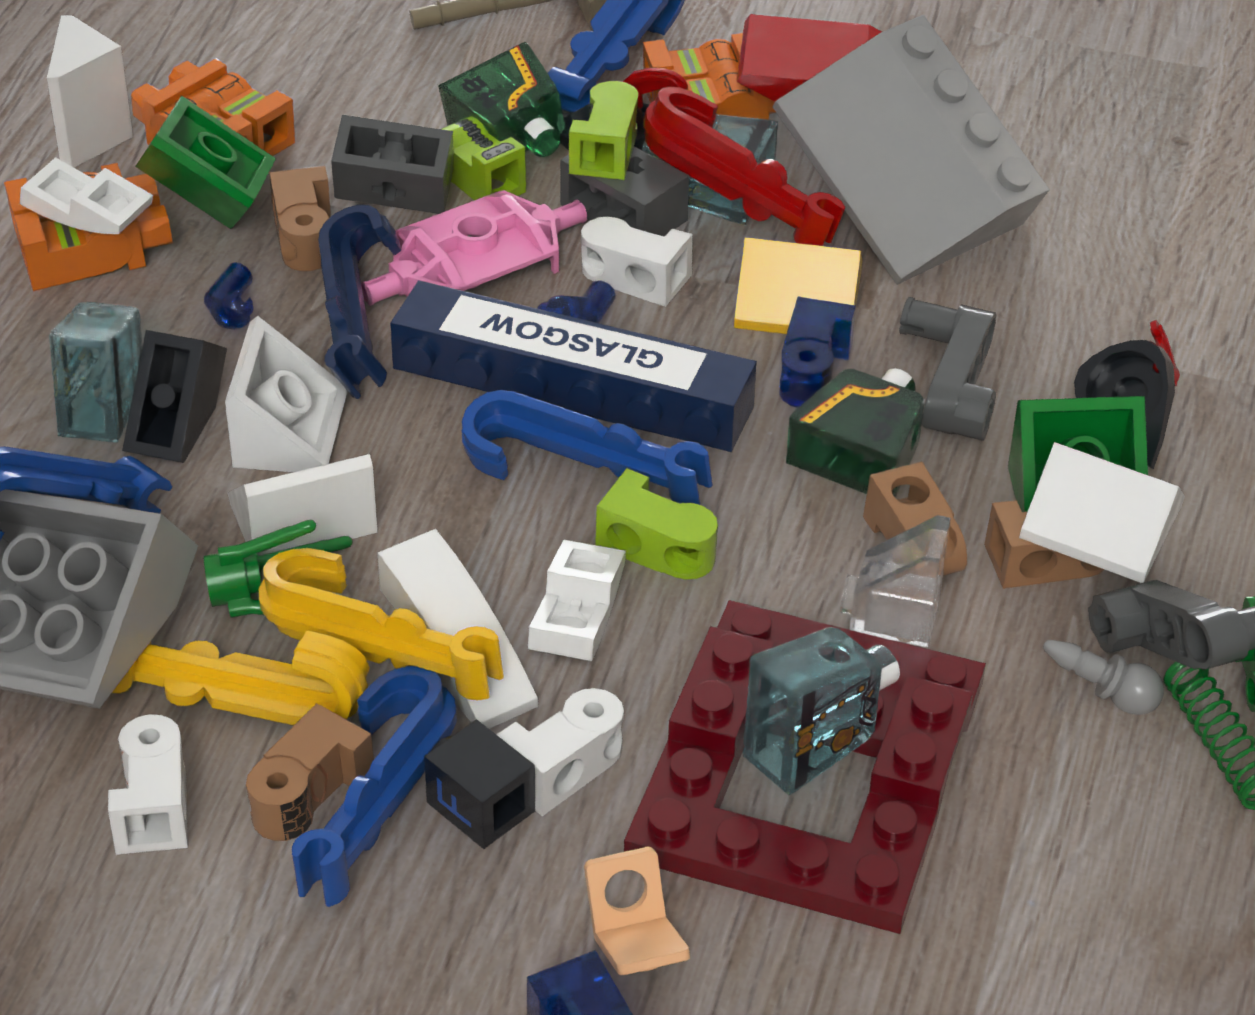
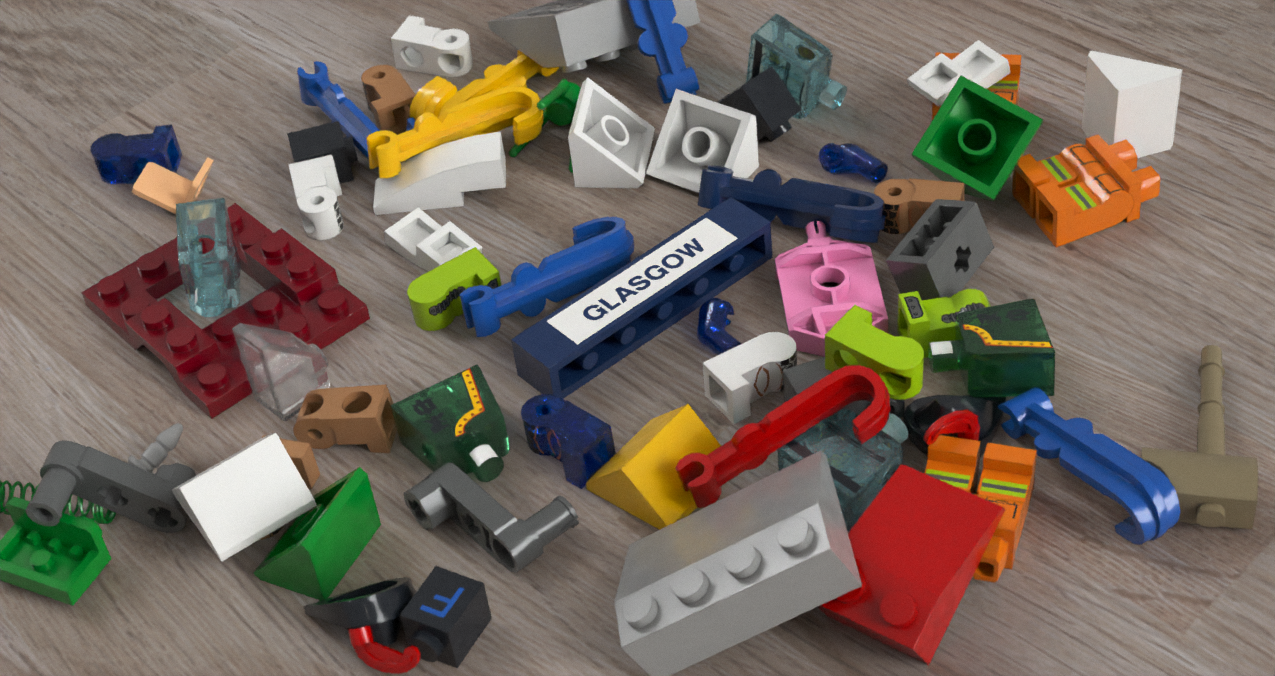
camera: 125 degrees right, 0 degrees up
(1084, 328) = (446, 616): none -> black brick

